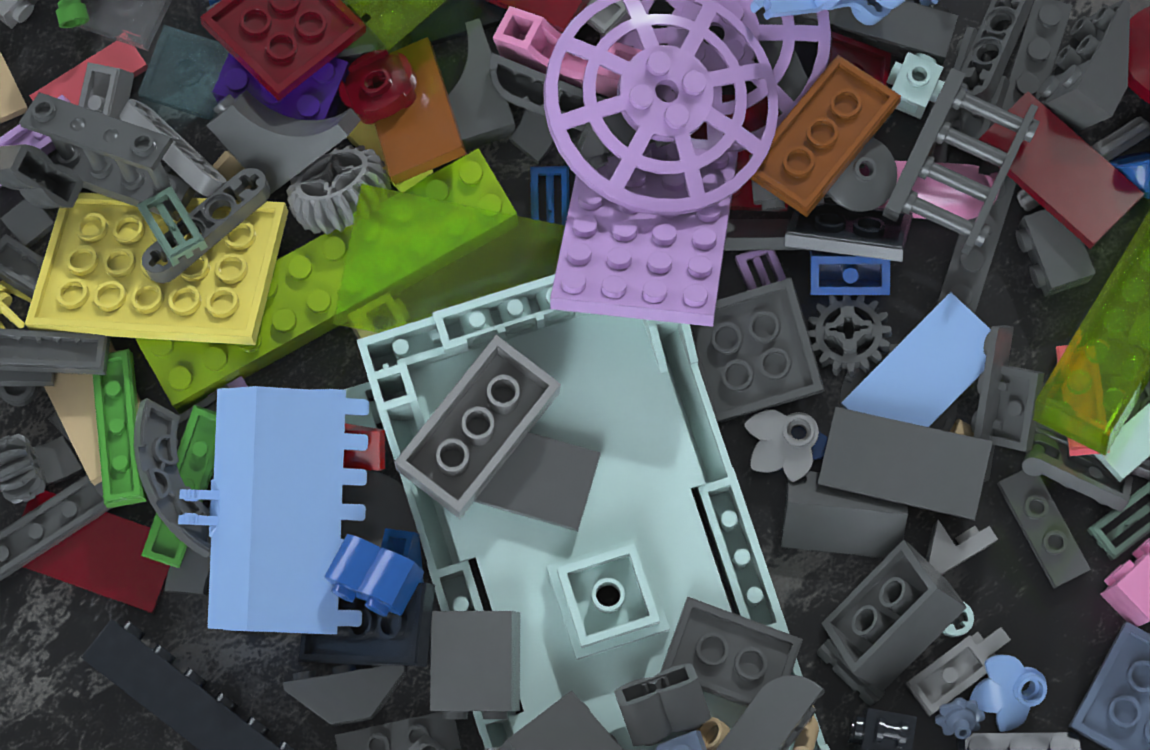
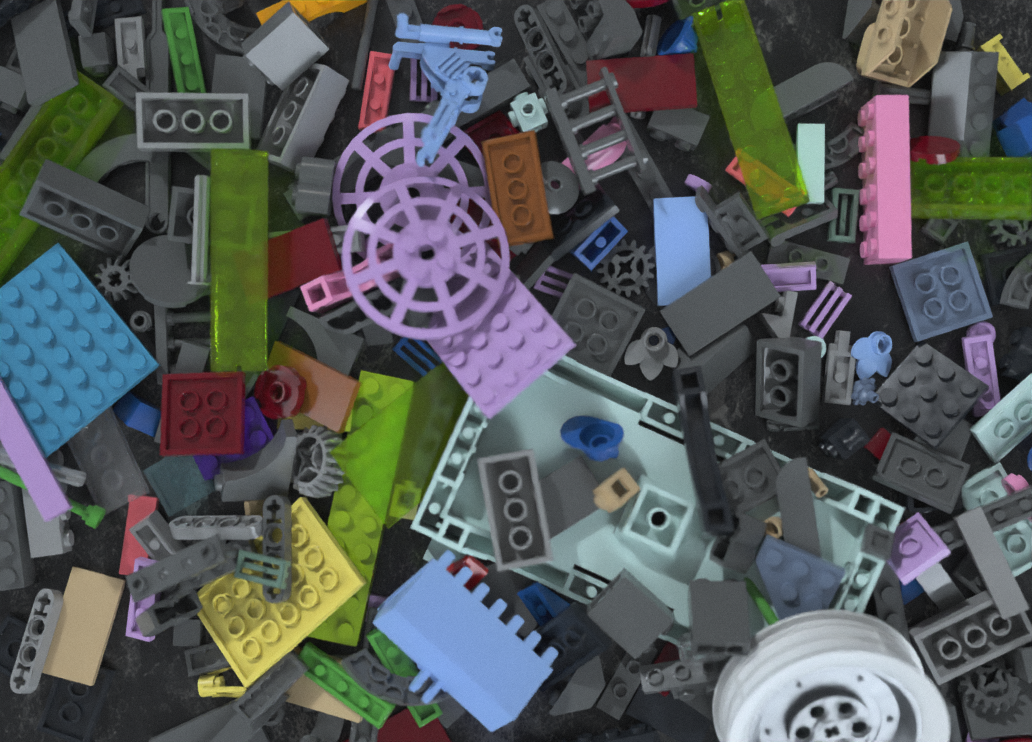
camera: 50 degrees left, 10 degrees up
(373, 575) = (543, 629): blue brick -> none
(596, 519) = (611, 494): none -> tan brick
(632, 447) = (593, 436): none -> blue piece
(723, 575) = (700, 452): none -> black arch
(1009, 519) = (792, 276): none -> lavender tile
(1011, 319) = (694, 182): none -> lavender tile
(1041, 590) = (837, 292): none -> lavender tile

